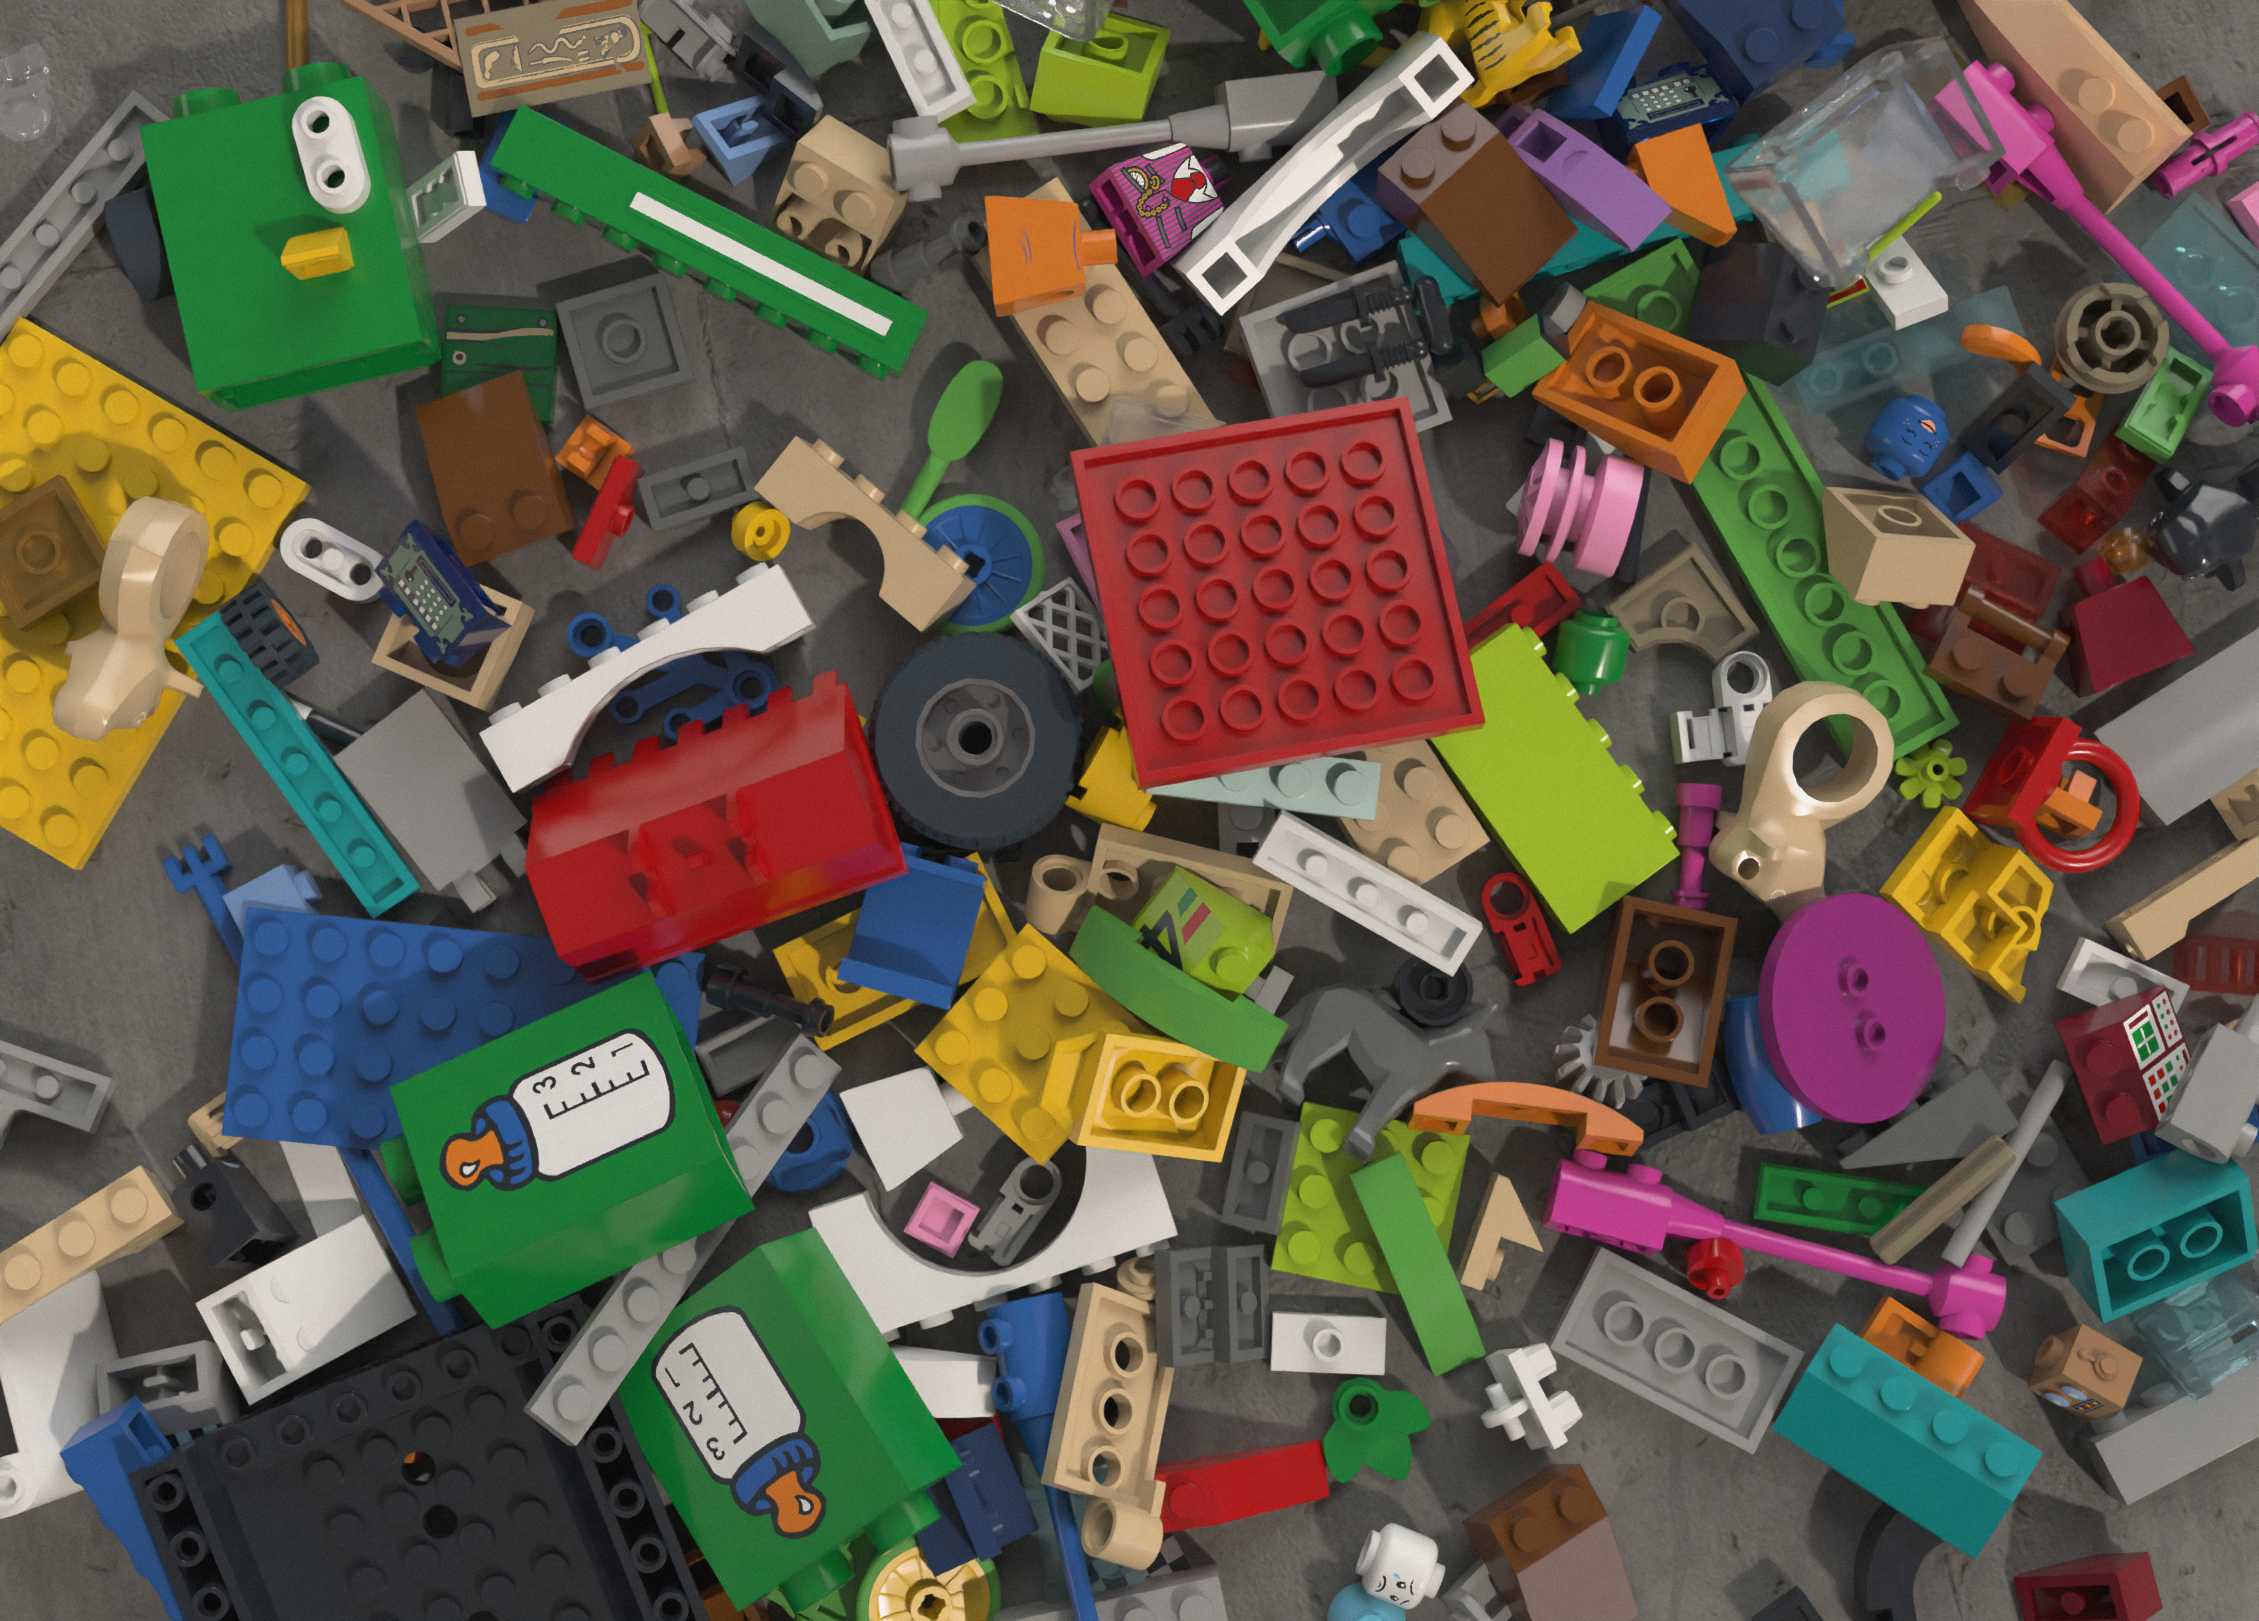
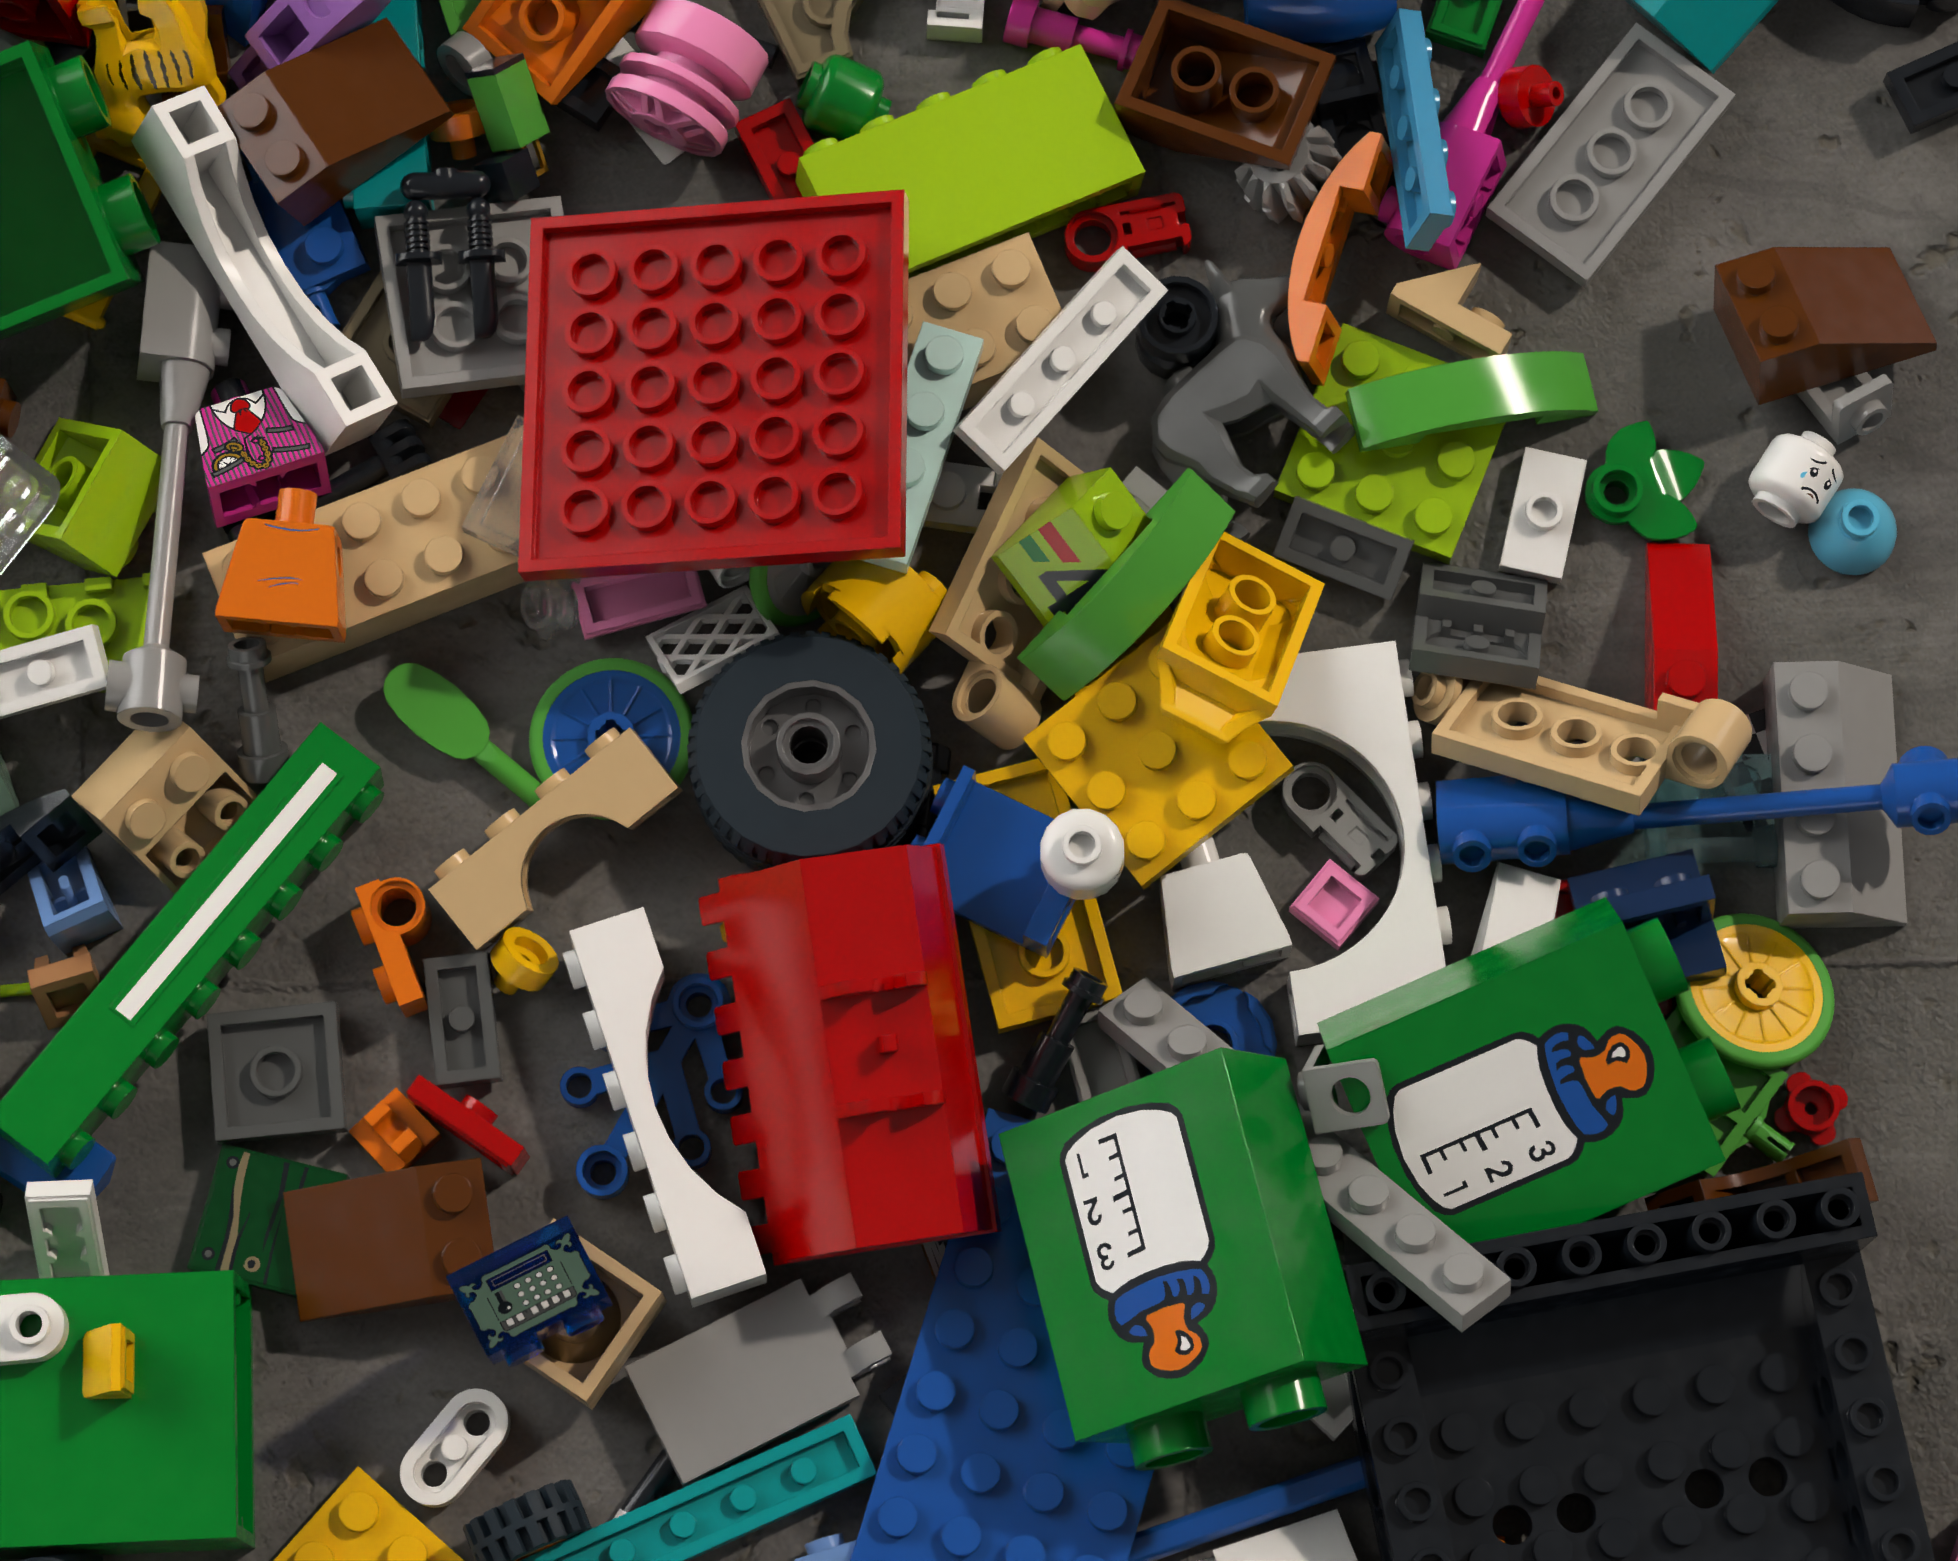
camera: 80 degrees left, 10 degrees down
(729, 426) = (397, 975): none -> orange plate
(732, 1243) = (1319, 1094): none -> light grey bracket
(912, 996) = (1082, 854): none -> white head
(1521, 1402) = (1639, 317): white hips -> none
(1655, 1169) = (1414, 130): none -> dark azure plate

